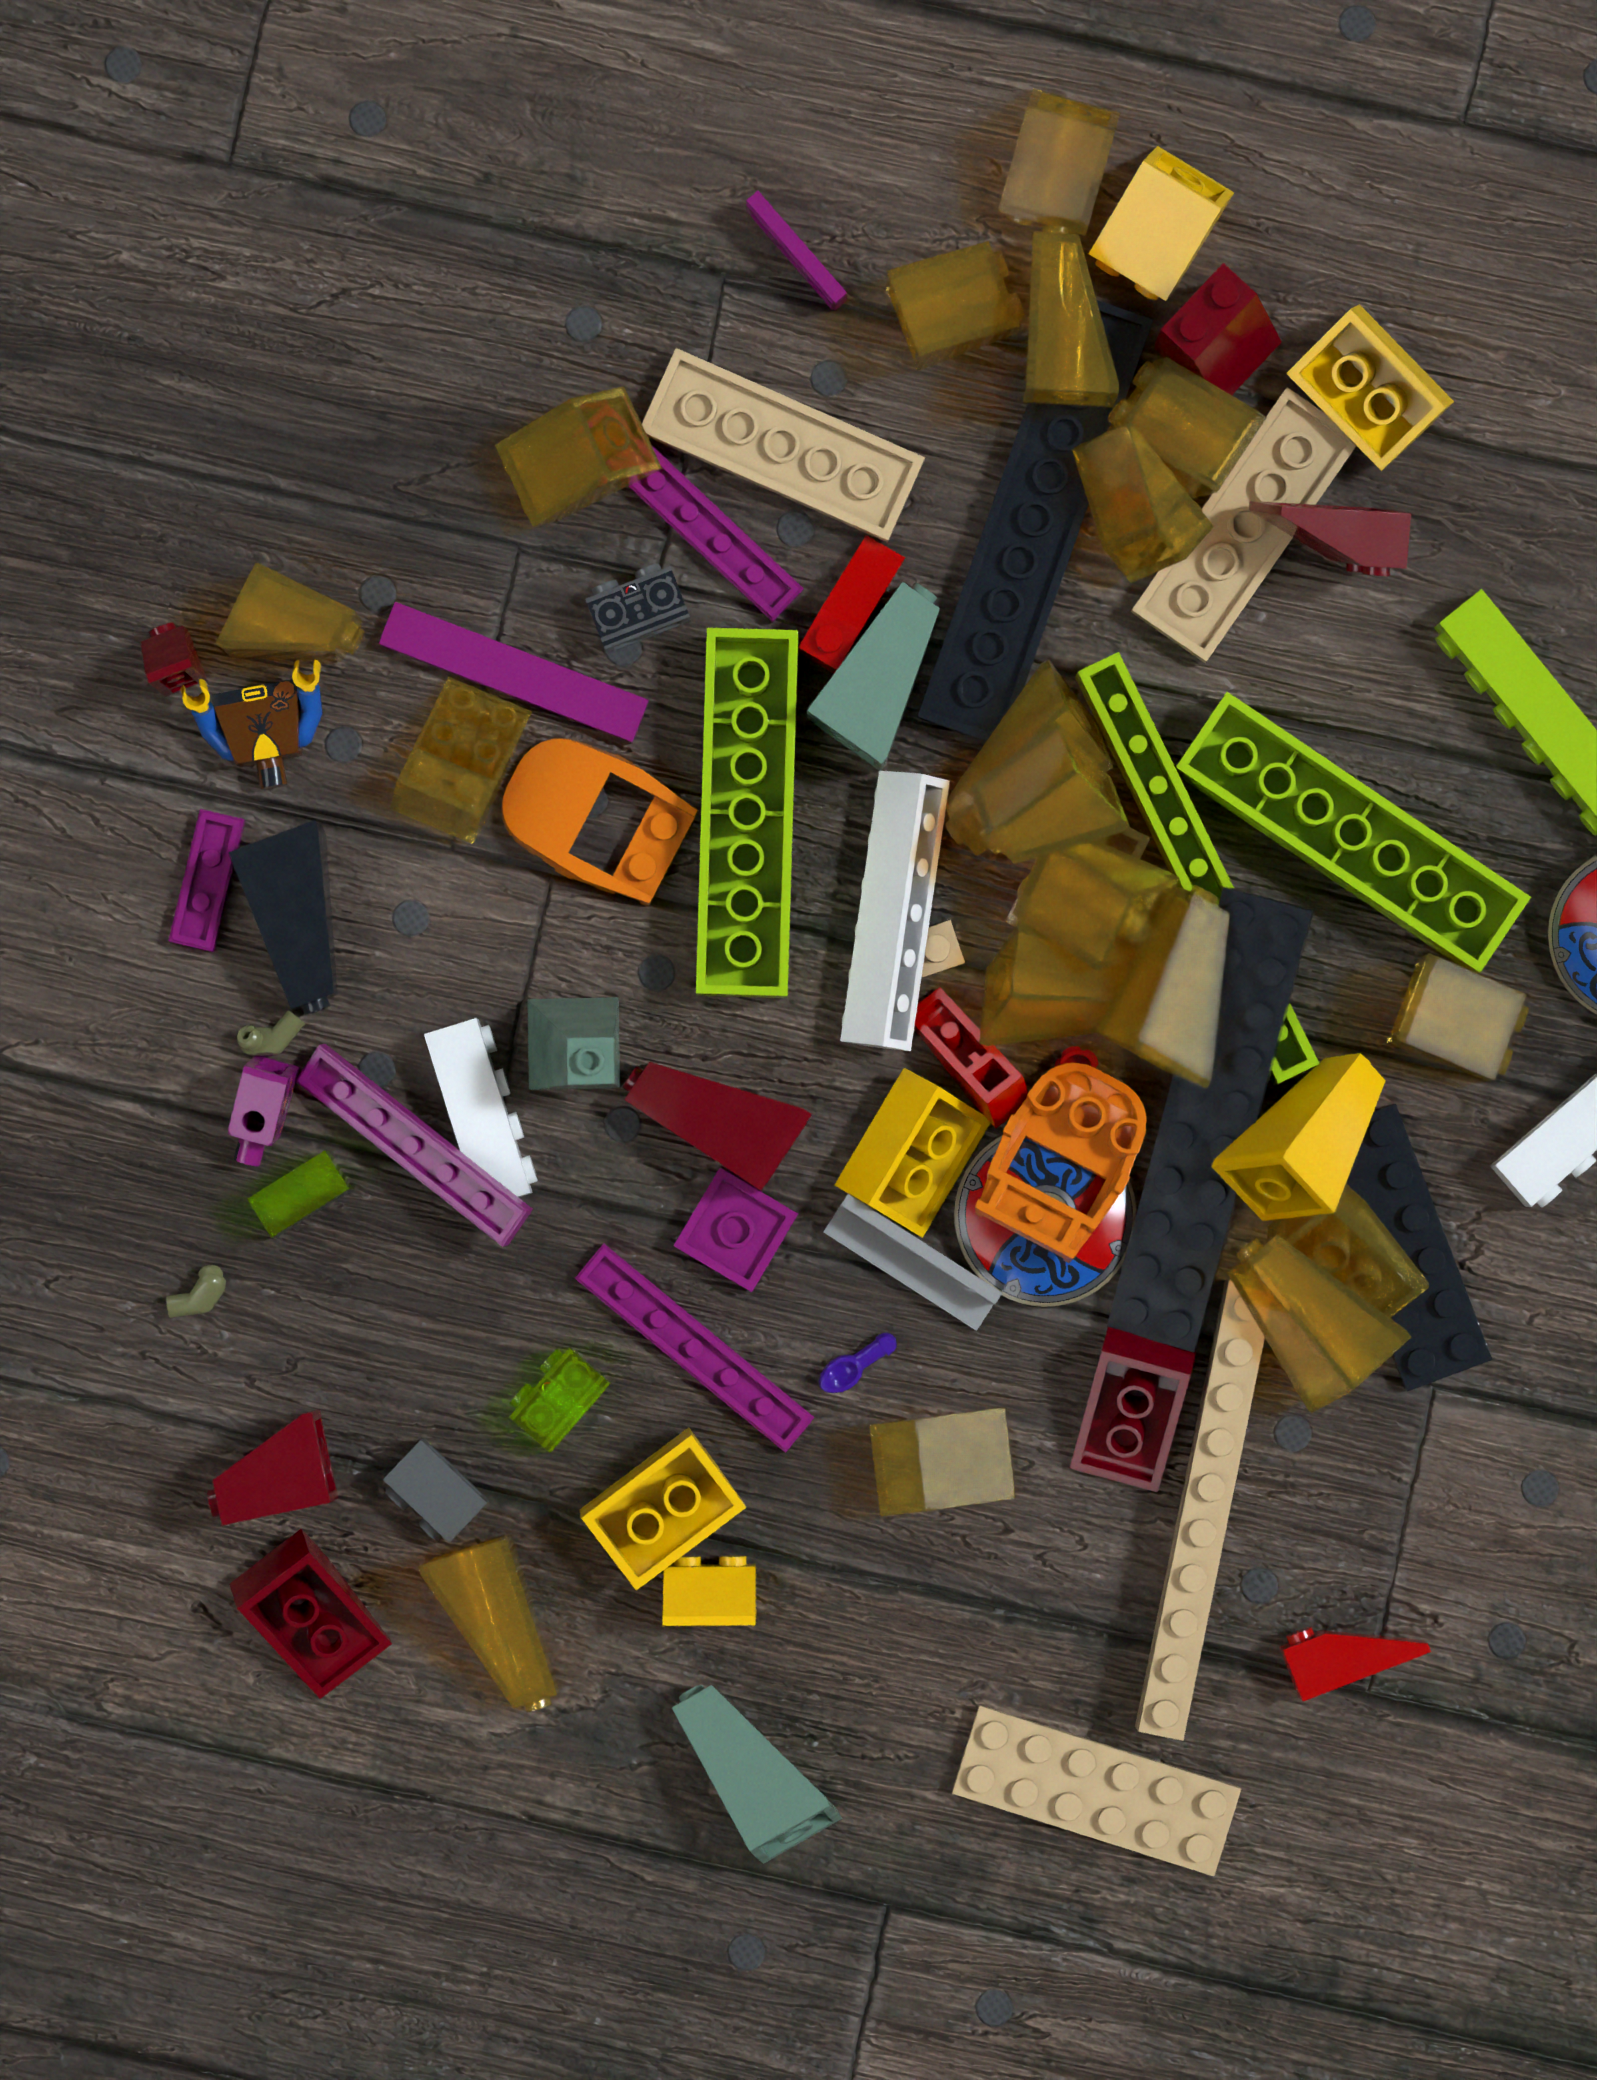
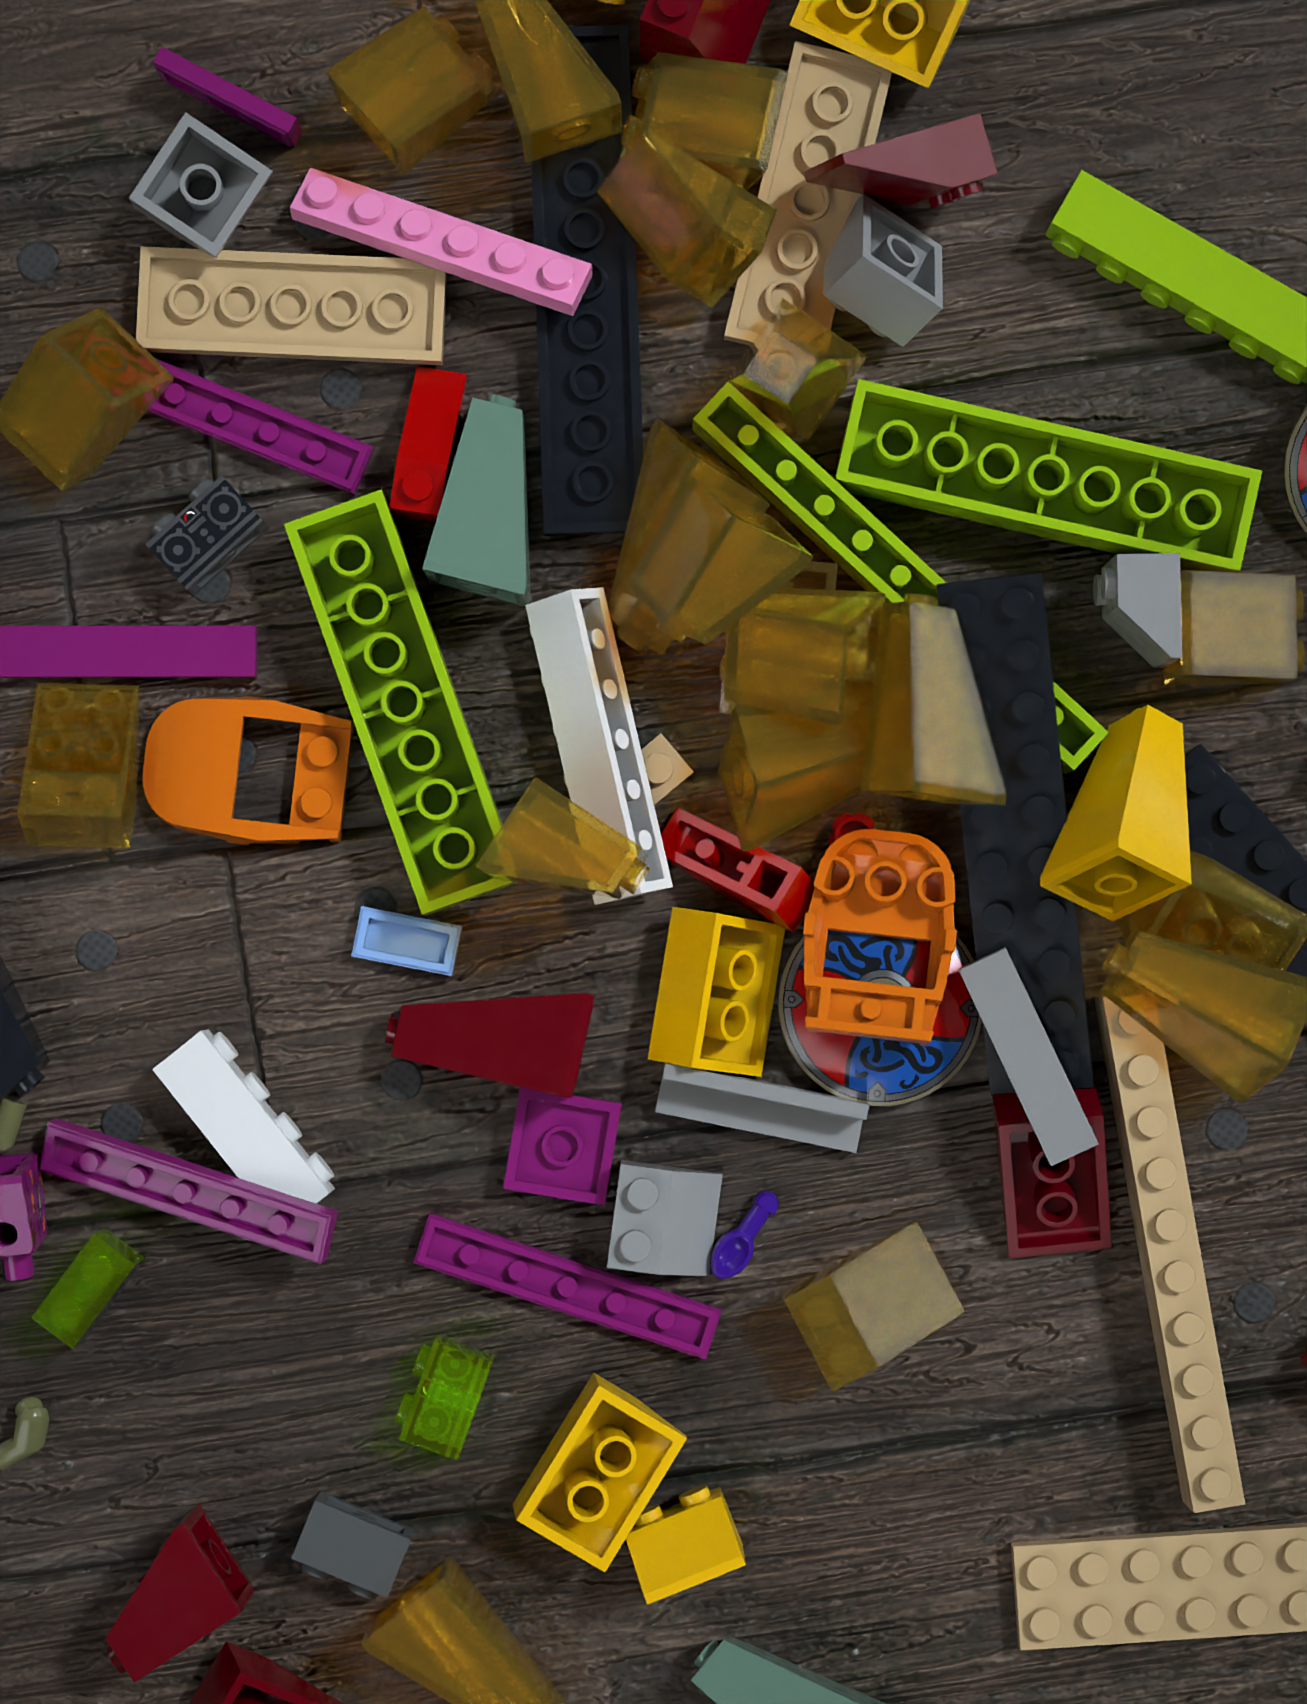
camera: 25 degrees left, 0 degrees up
(573, 1043) = (317, 1015): sand green slope -> none
(672, 1010) = (406, 941): none -> light blue tile
(745, 320) = (199, 186): none -> light grey slope
(796, 1323) = (664, 1219): none -> light grey slope
(834, 984) = (563, 848): none -> clear yellow slope
(927, 441) = (441, 241): none -> bright pink plate
(1148, 1303) = (1028, 1056): none -> light grey slope
(1180, 661) = (796, 369): none -> clear yellow slope
(1285, 610) = (884, 272): none -> light grey slope
(1391, 967) = (1143, 603): none -> light grey slope

